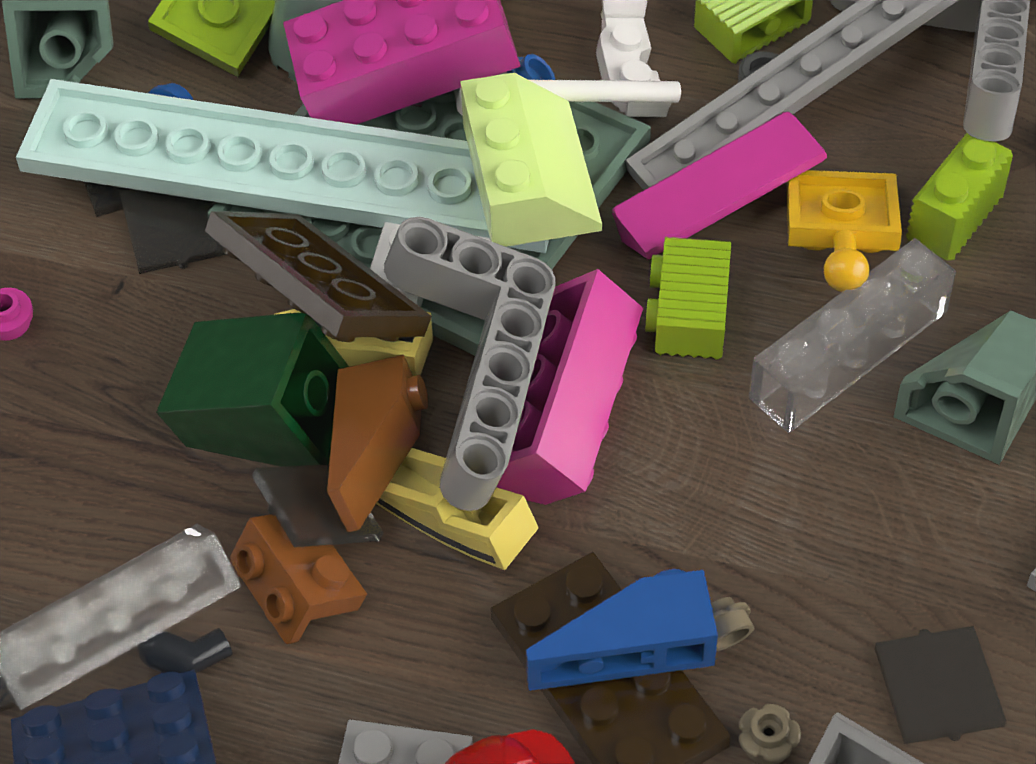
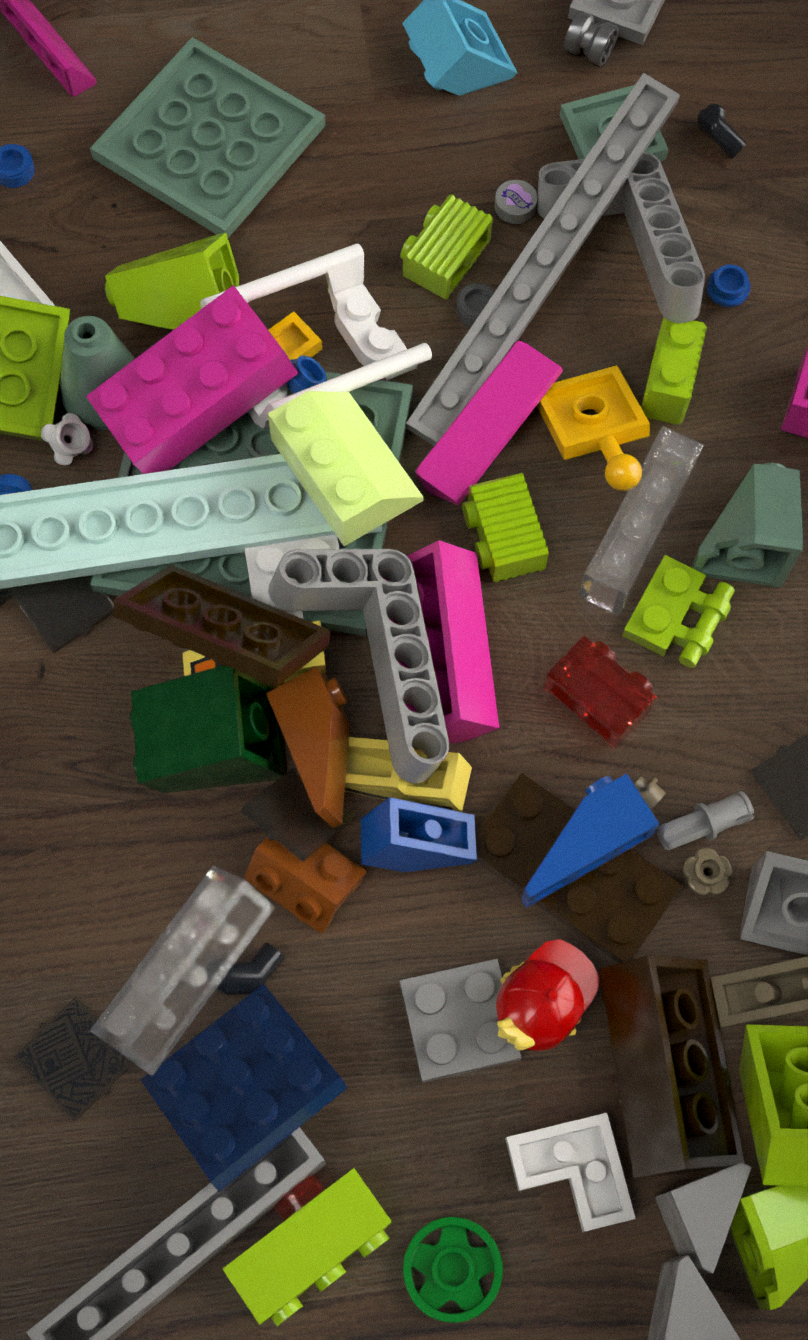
camera: 25 degrees left, 15 degrees up
(261, 61) = (78, 433): none -> white plate
(437, 571) = (416, 837): none -> blue slope
(544, 42) = (296, 337): none -> yellow plate
(725, 495) = (600, 690): none -> clear red brick
(789, 676) = (706, 821): none -> light grey axle
(848, 435) = (665, 605): none -> lime plate

